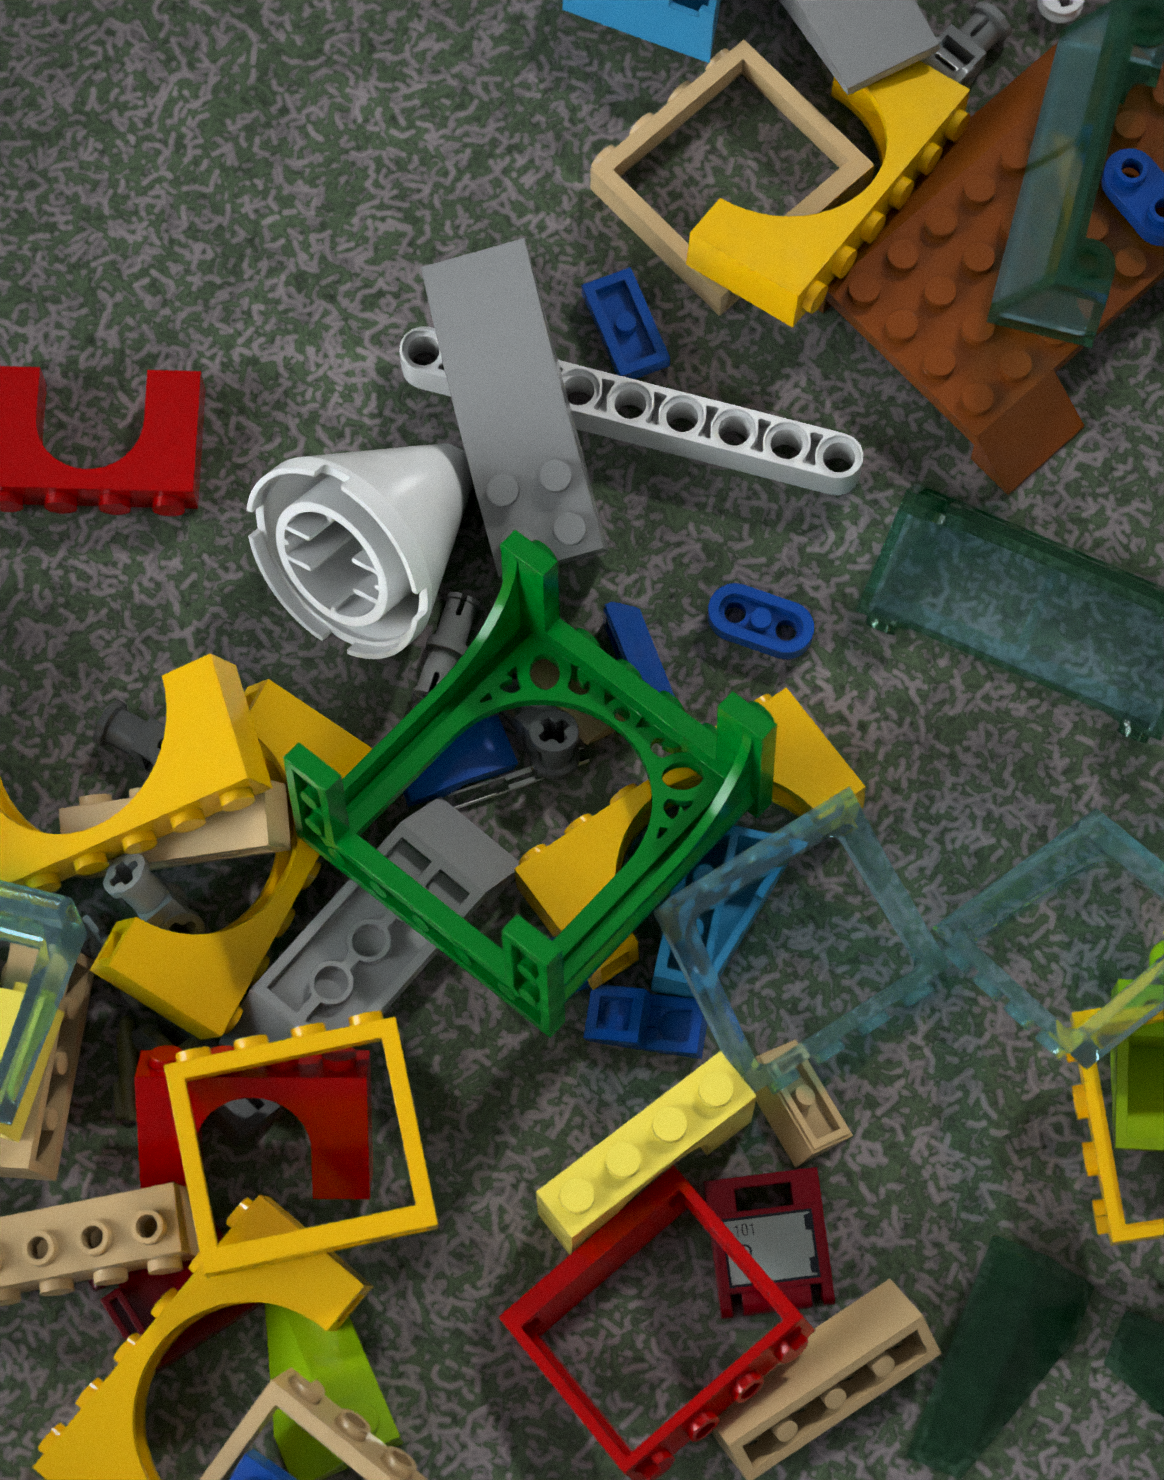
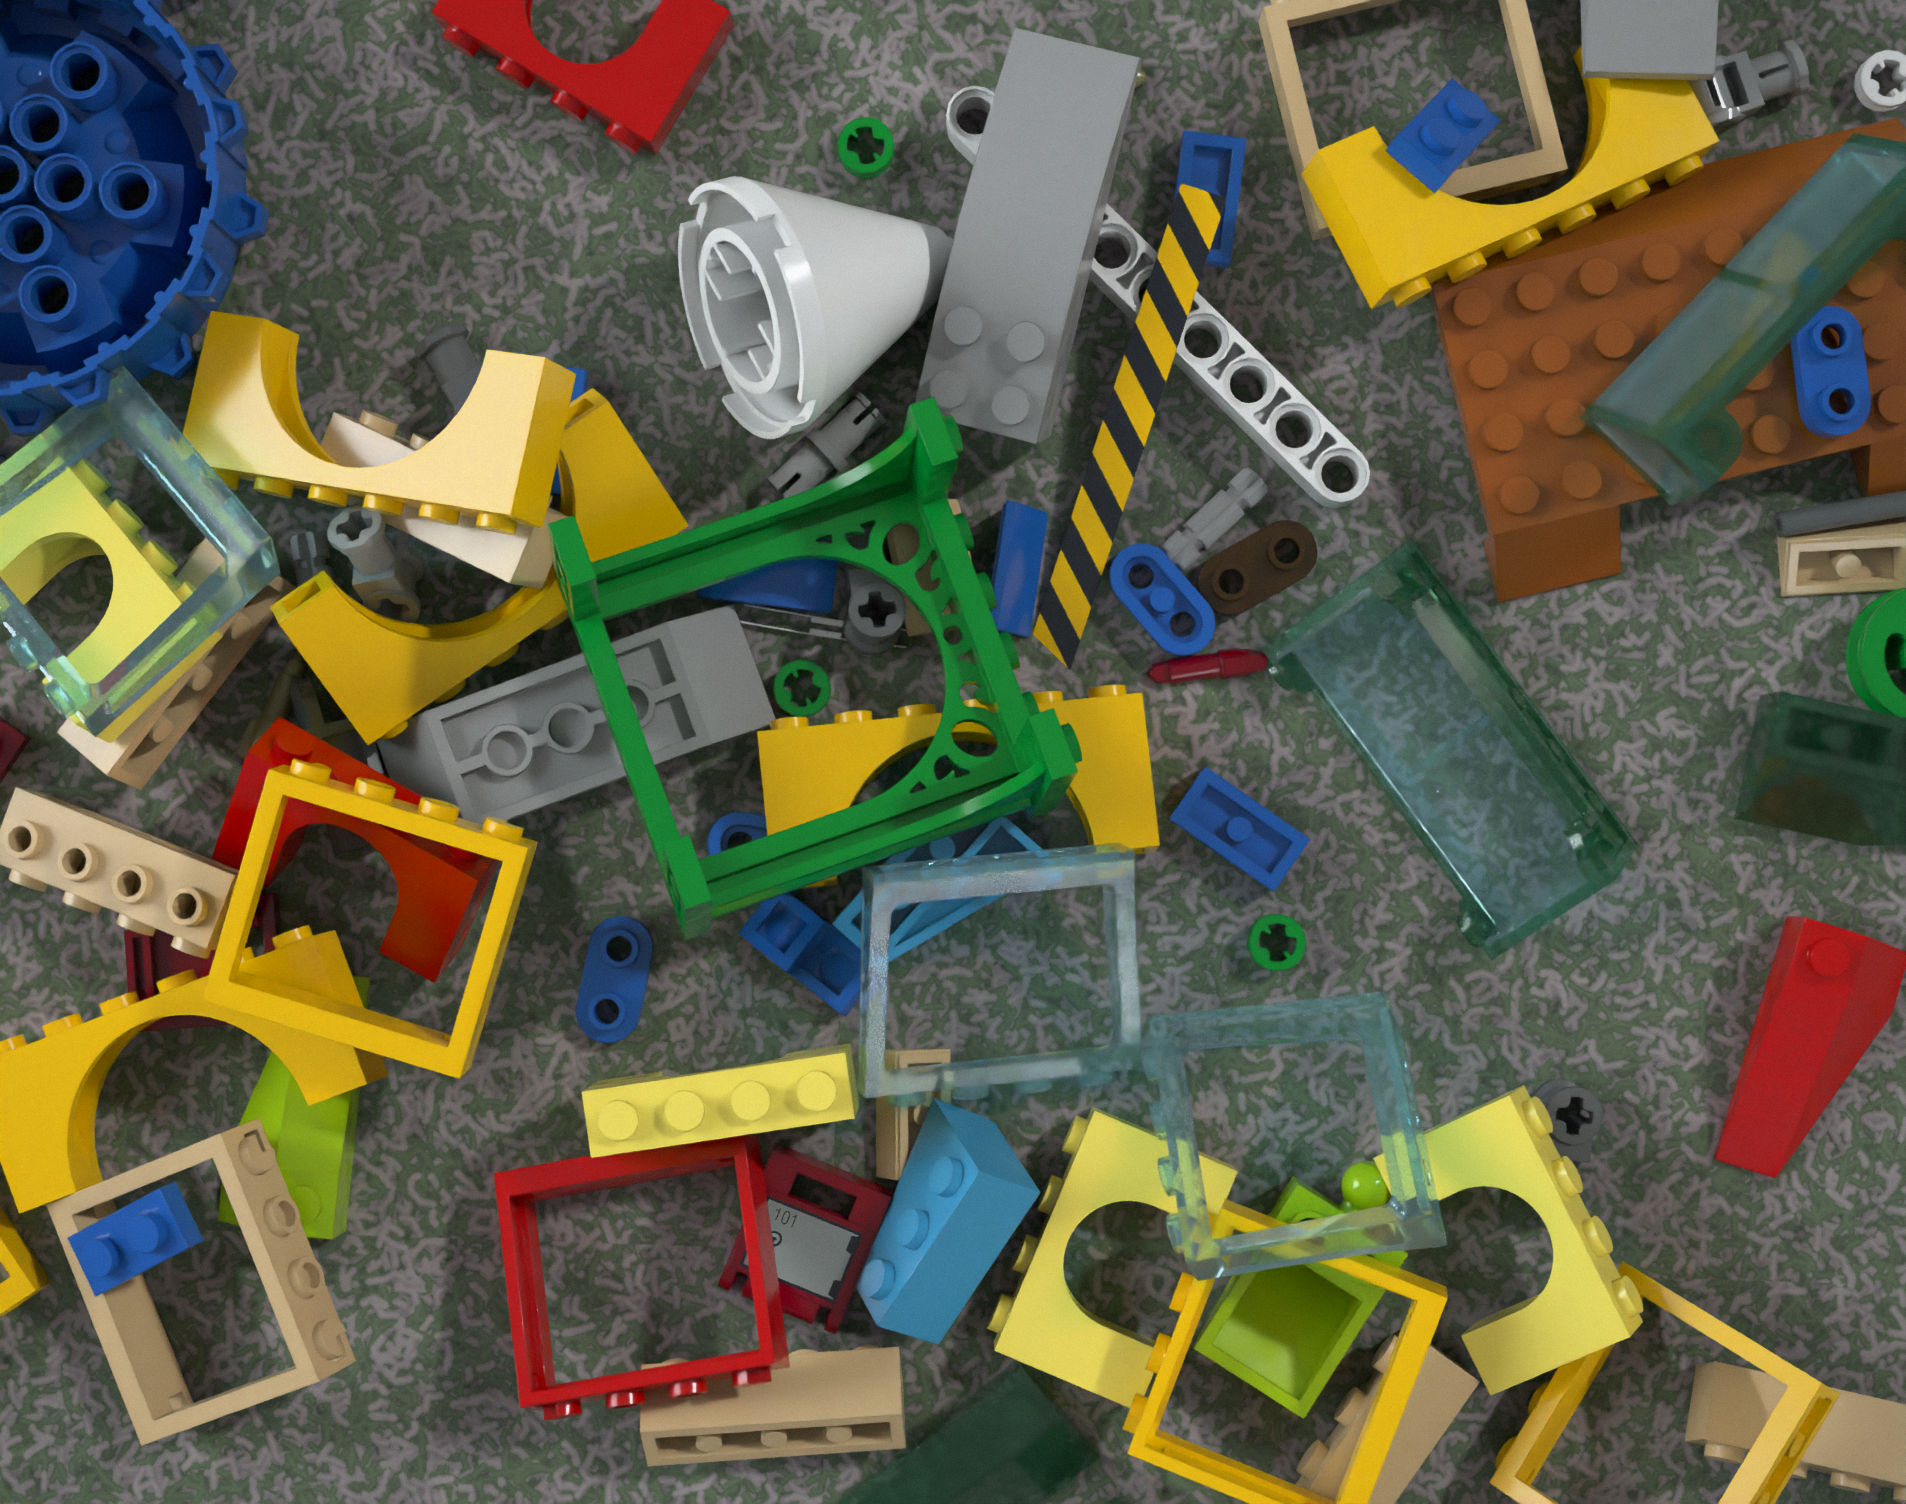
camera: 30 degrees right, 15 degrees up
(359, 406) = (881, 136): none -> green bush
(506, 1126) = (615, 979): none -> blue plate
(539, 818) = (785, 697): none -> green bush
(661, 507) = (1128, 420): none -> sticker
(766, 542) = (1215, 518): none -> light grey axle
(772, 180) = (1443, 135): none -> blue plate
(818, 561) = (1257, 567): none -> dark brown plate
(832, 646) = (1222, 665): none -> dark red piece
(870, 1163) = (944, 1223): none -> dark azure wedge
(916, 754) = (1238, 829): none -> blue plate
(987, 1195) = (1043, 1319): none -> light yellow arch
(988, 837) = (1290, 929): none -> green bush

